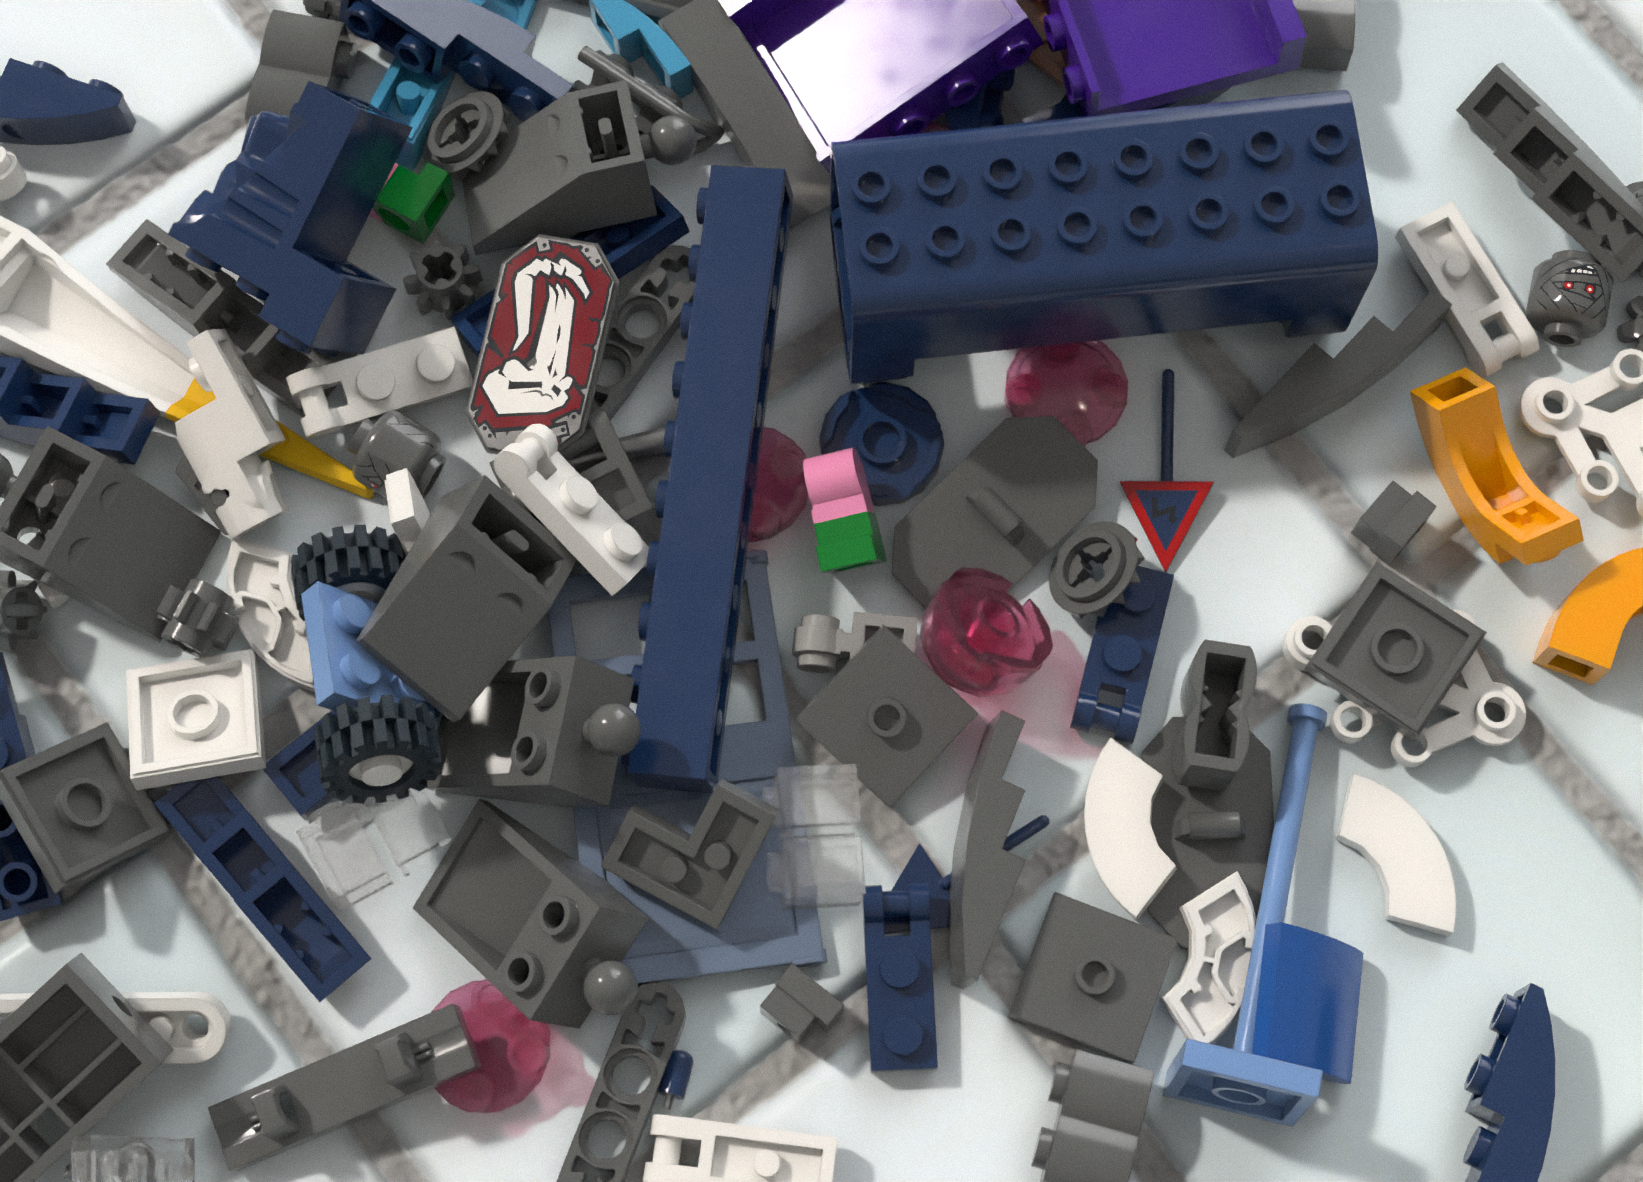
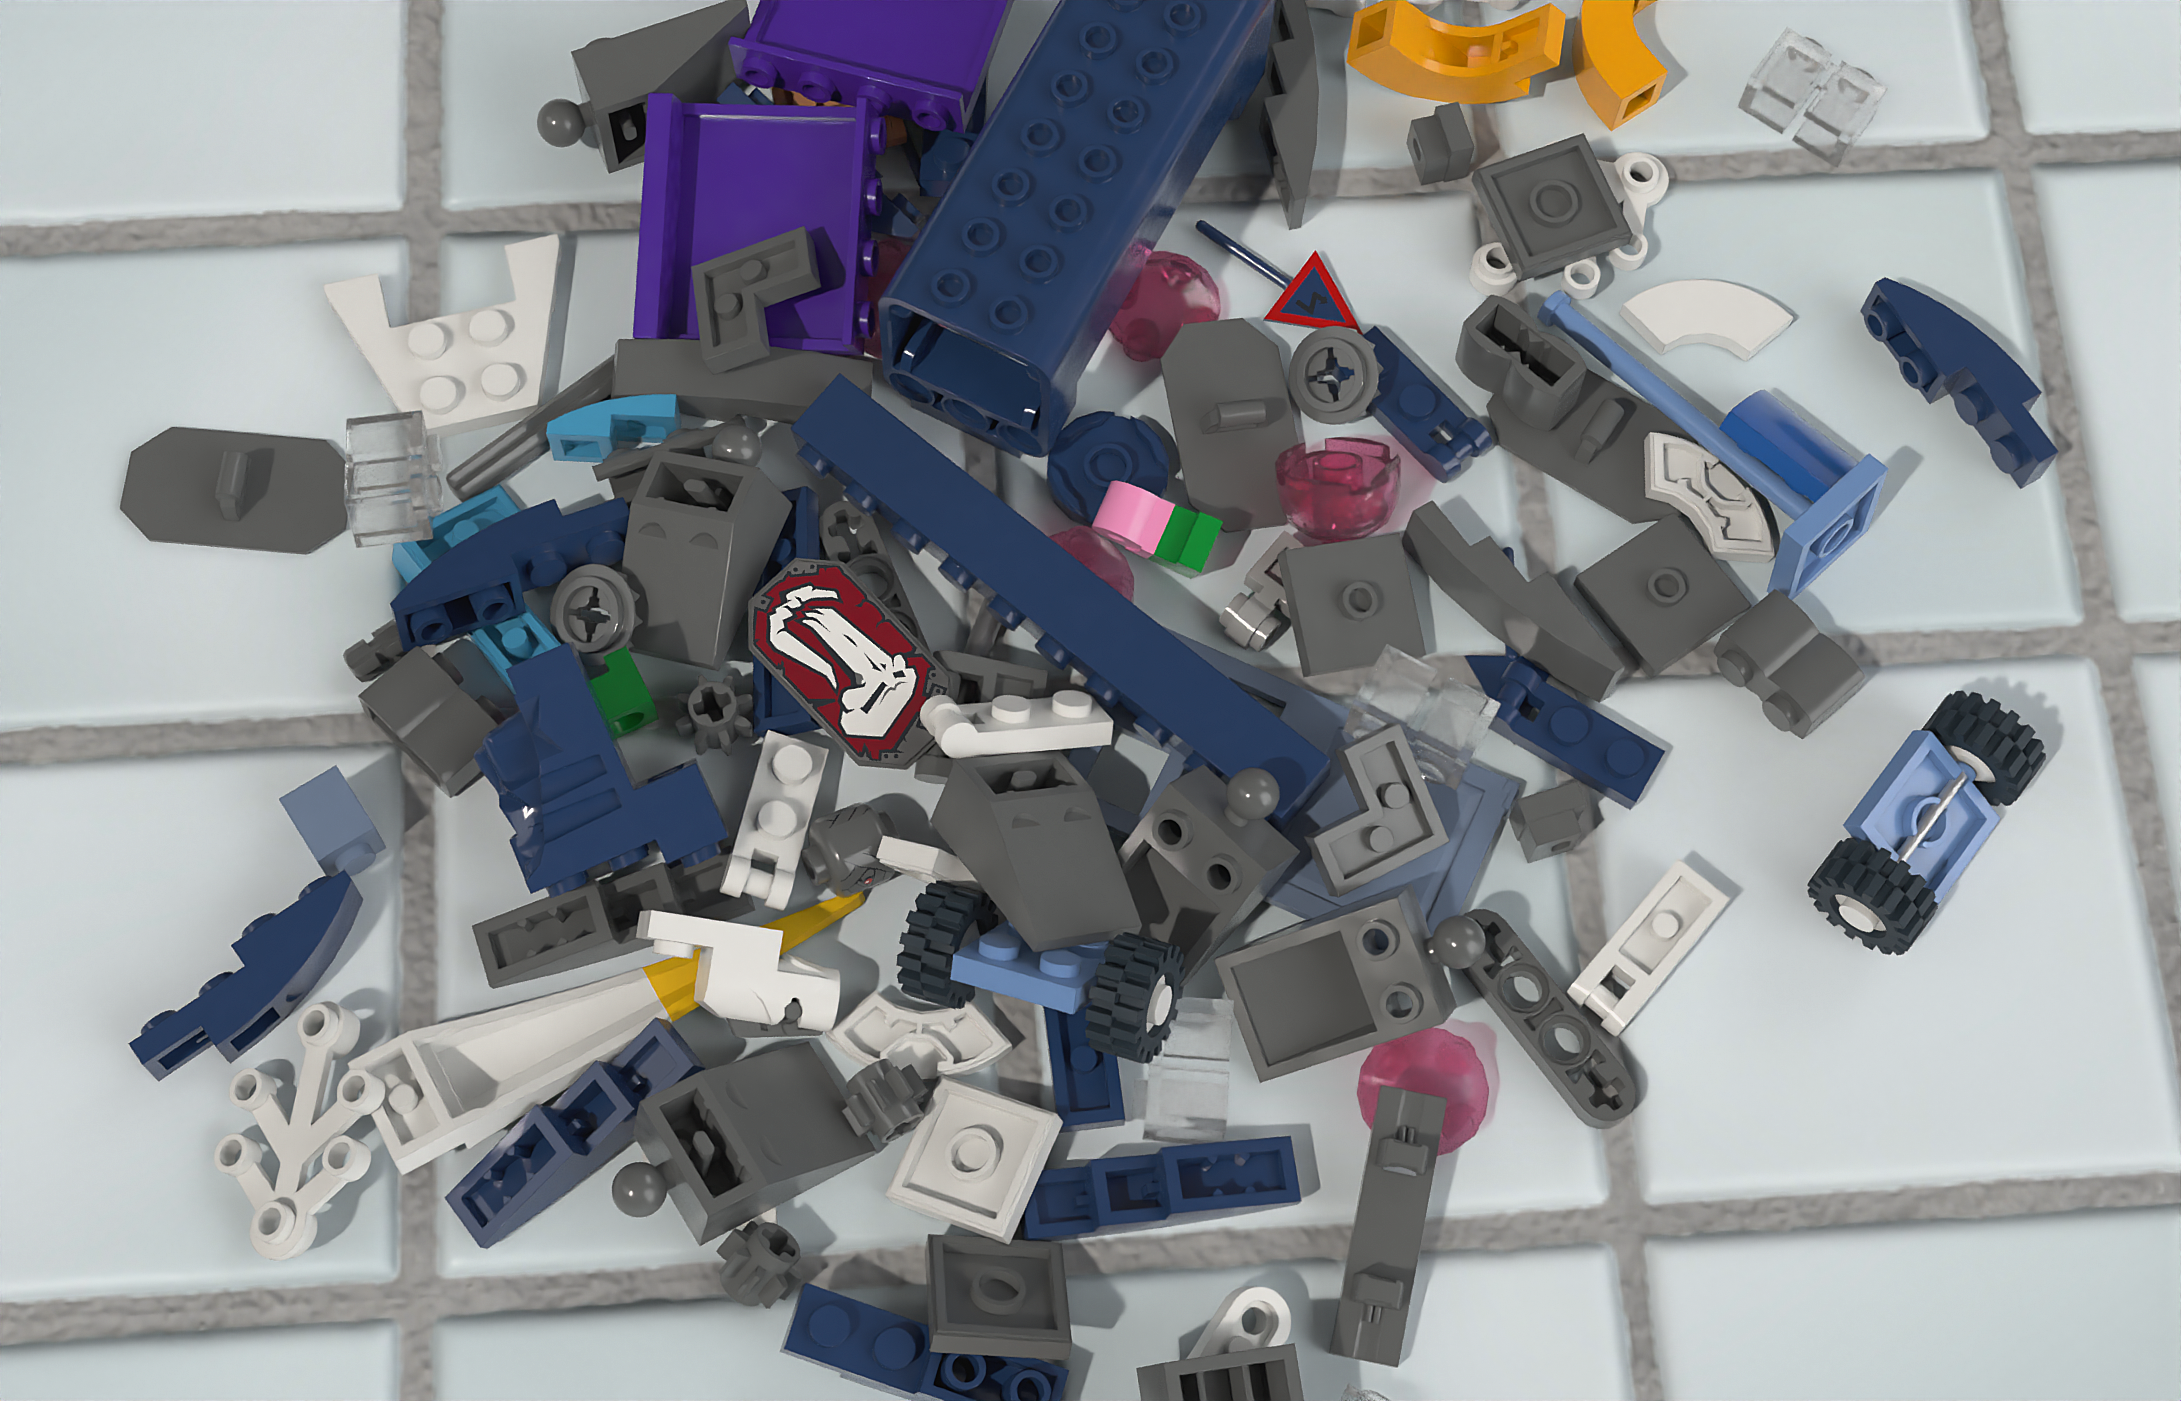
camera: 60 degrees left, 5 degrees down
(165, 66) = (333, 824): none -> sand blue brick
(676, 1077) = (1546, 957): dark blue piece -> none
(805, 46) = (737, 288): none -> dark grey plate
(1121, 831) = (1556, 497): white tile -> none

